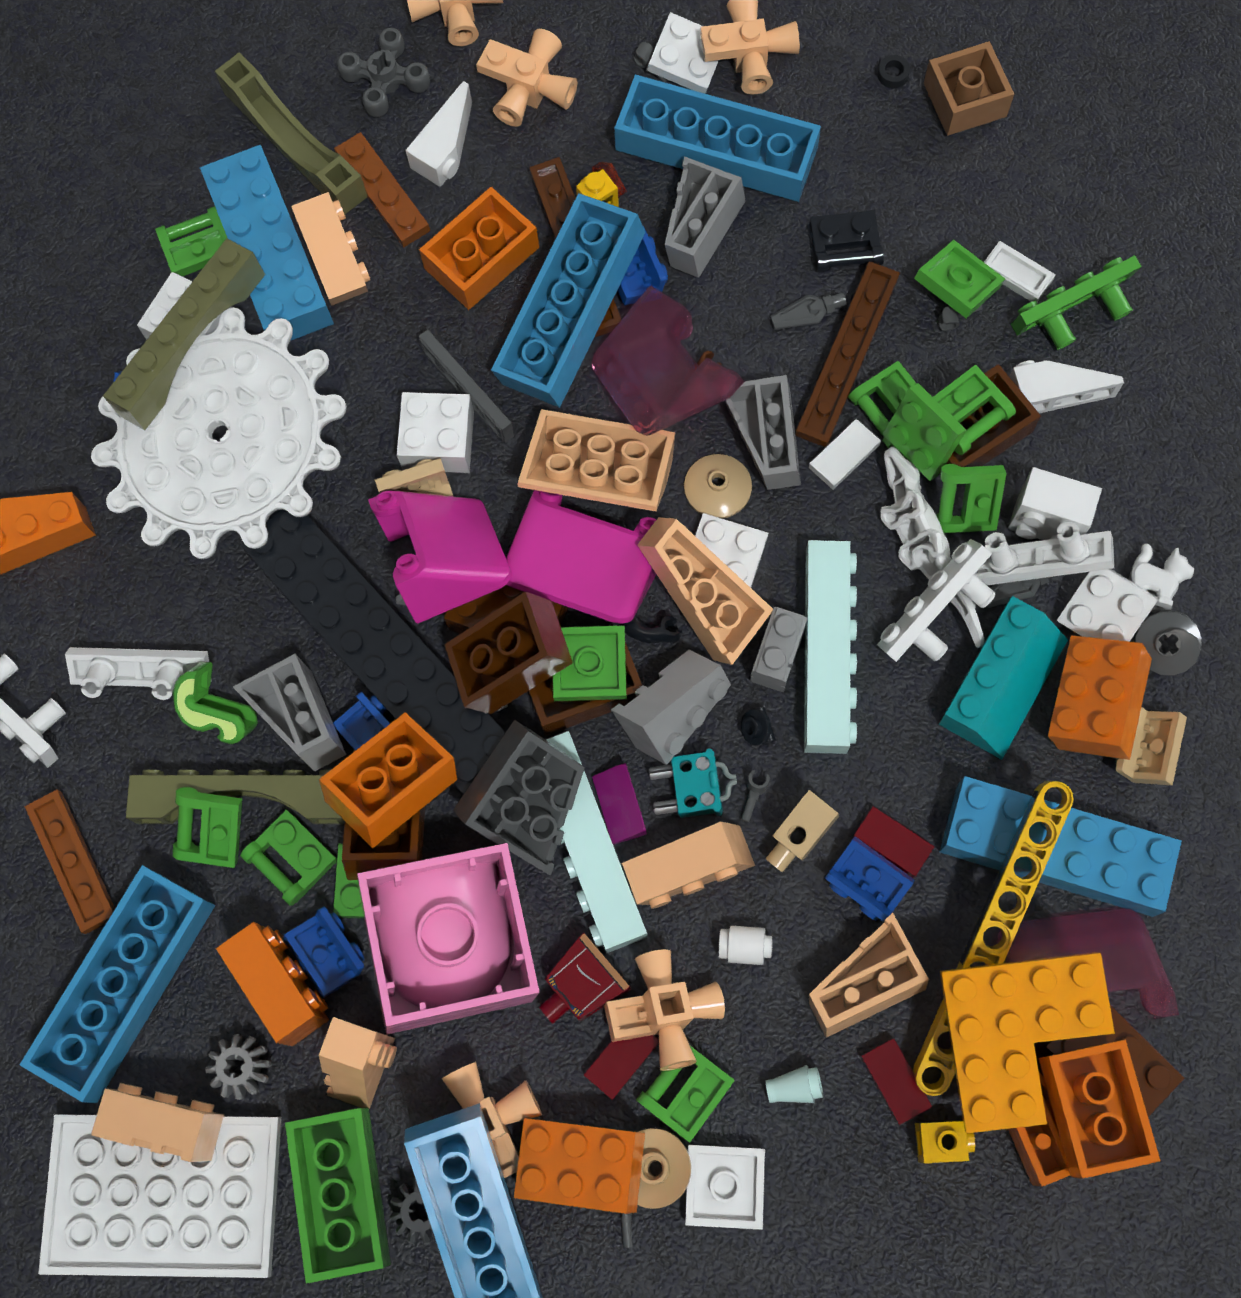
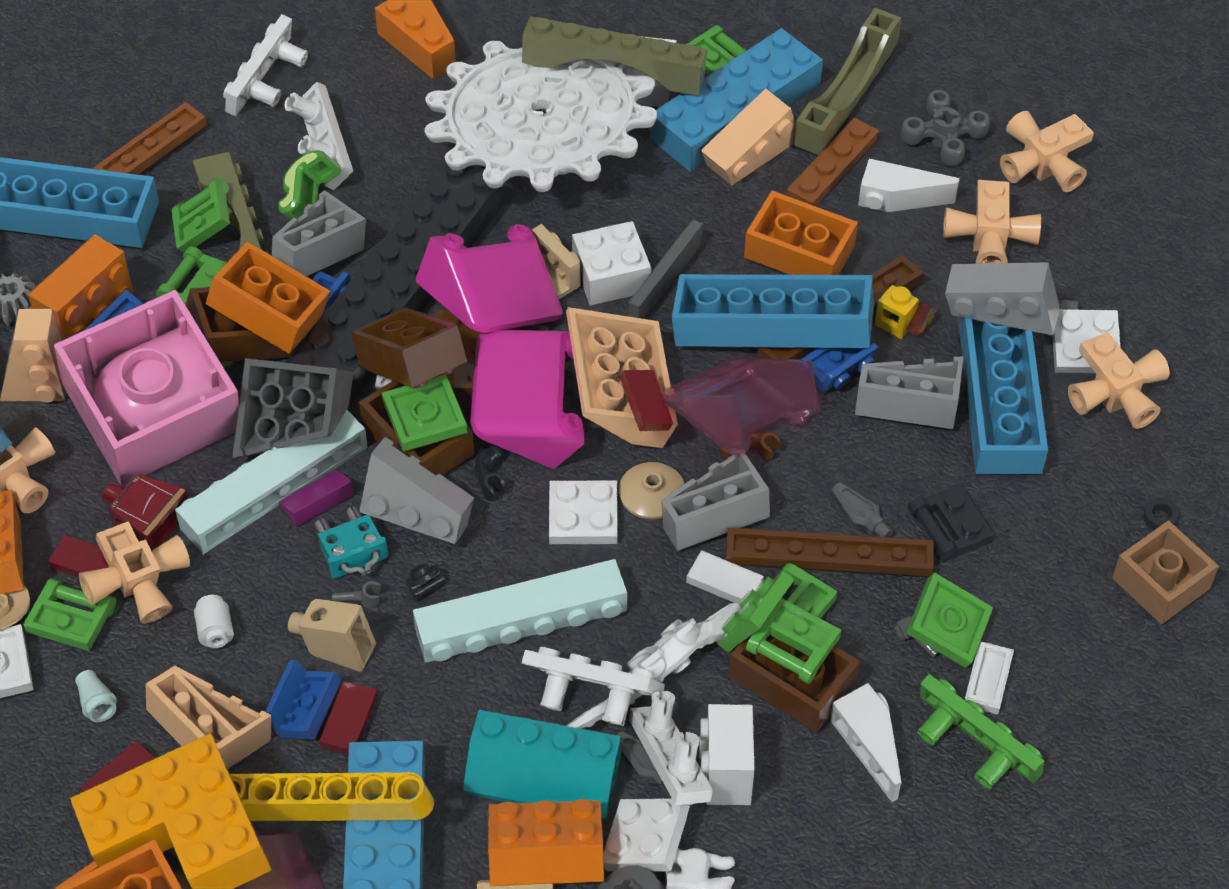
camera: 65 degrees right, 20 degrees down
(645, 88) = (1005, 295): none -> light grey wedge
(650, 448) = (646, 400): none -> dark red tile
(688, 864) = (276, 557): light nougat wedge -> none
(706, 590) = (530, 481): light nougat wedge -> none
(778, 649) = (499, 567): light grey brick -> none
(930, 1146) = (66, 826): yellow brick -> none
(981, 497) = (719, 685): bright green plate -> none

